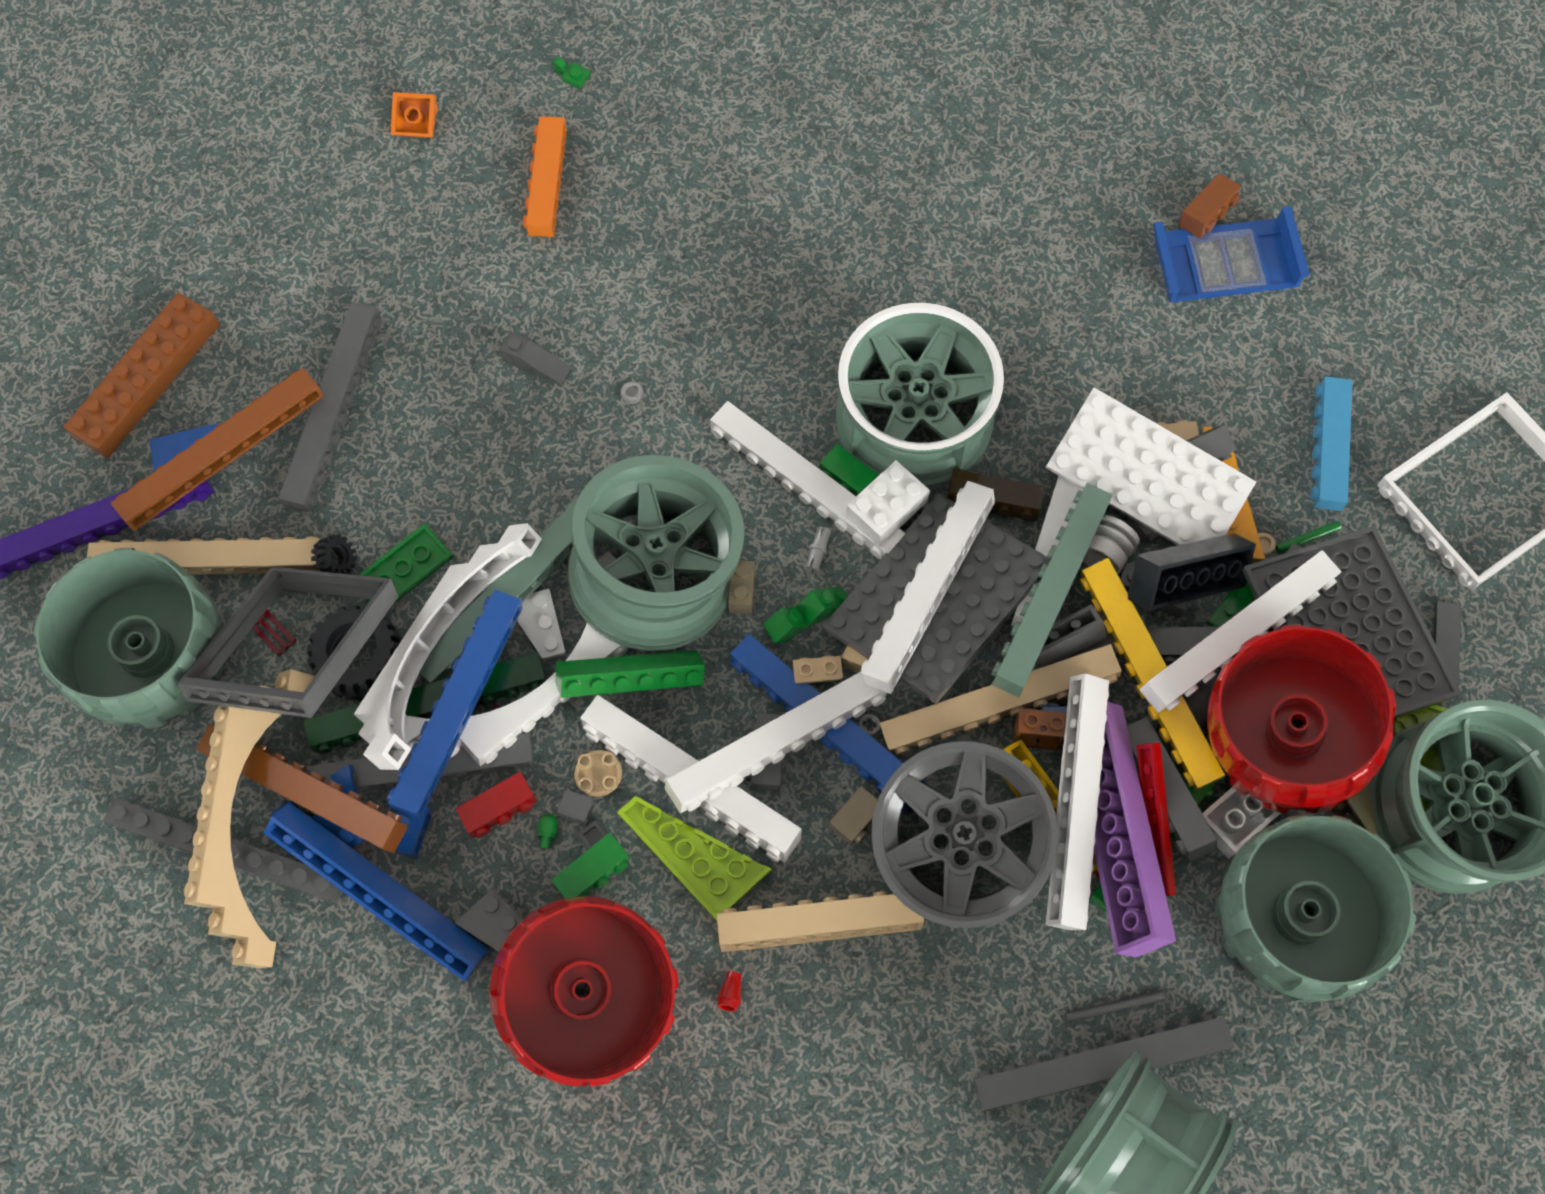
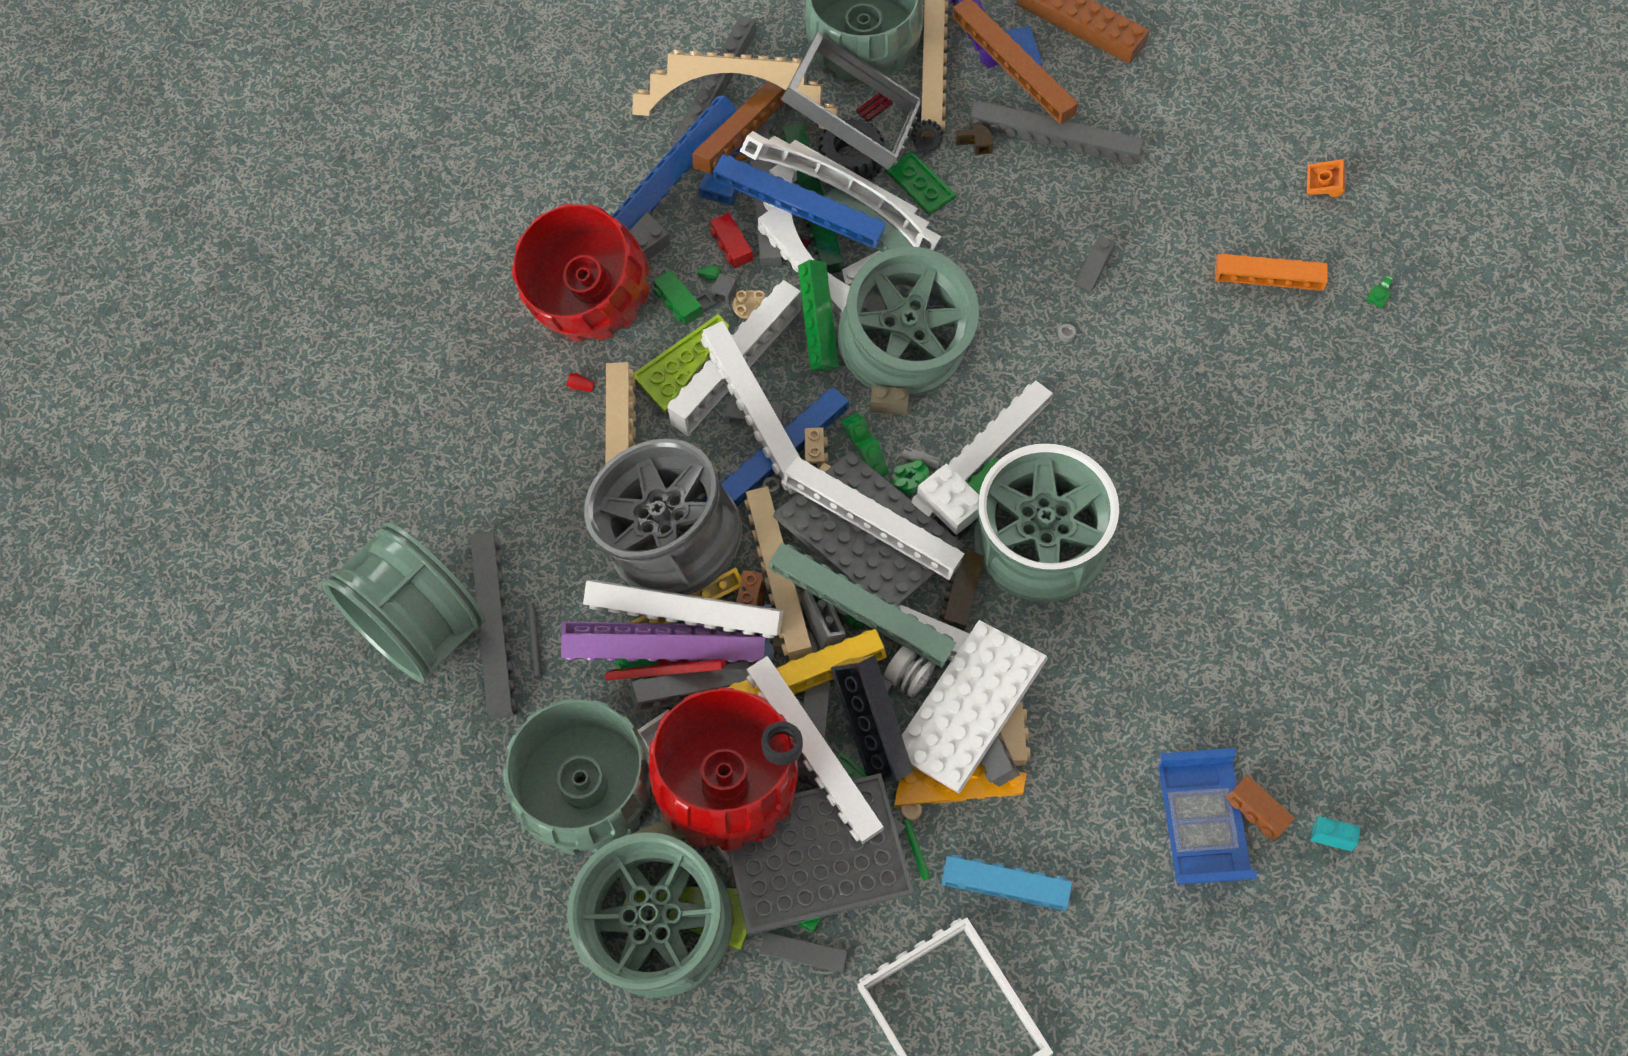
camera: 95 degrees right, 5 degrees down
(336, 494) = (978, 136): none -> dark brown brick
(837, 551) = (903, 472): none -> green plate
(1224, 142) = (1335, 833): none -> teal brick
(1297, 615) = (782, 728): none -> black tyre

